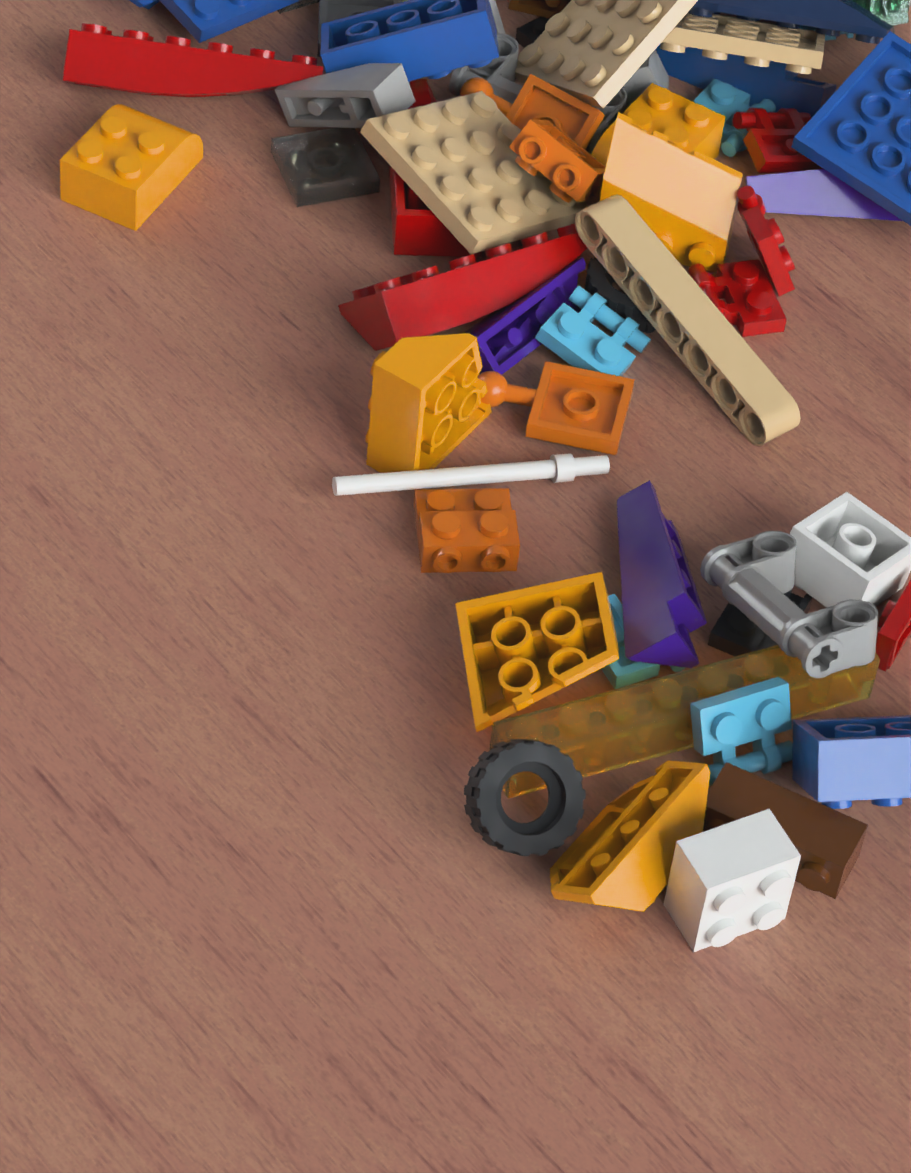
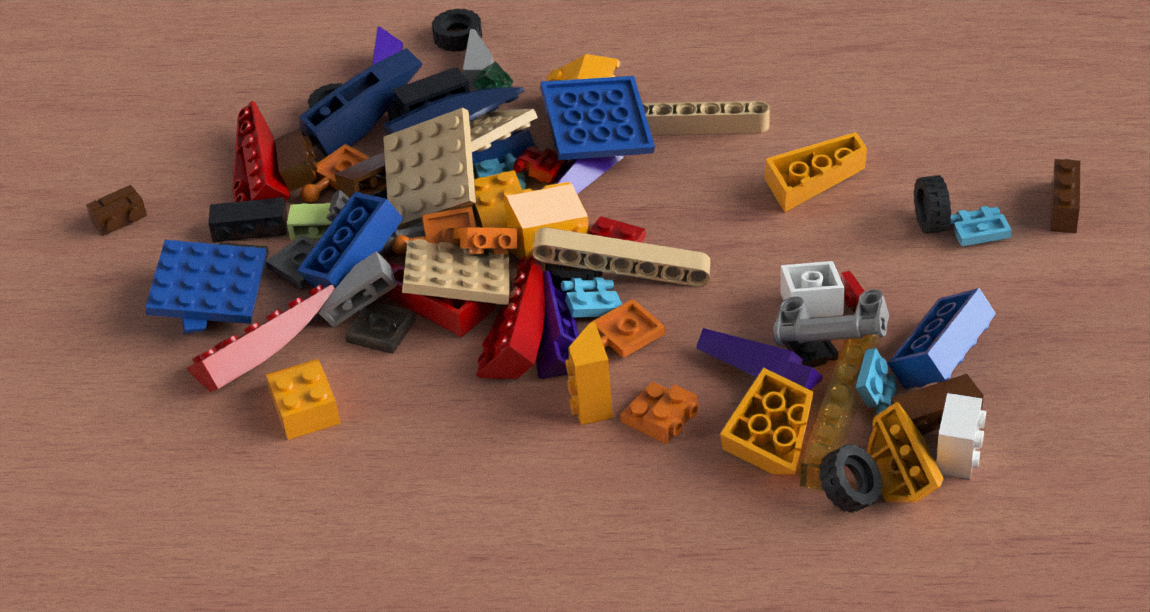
camera: 40 degrees left, 5 degrees down
(558, 468) = (655, 358): white bar -> none
(765, 239) = (601, 203): red plate -> none

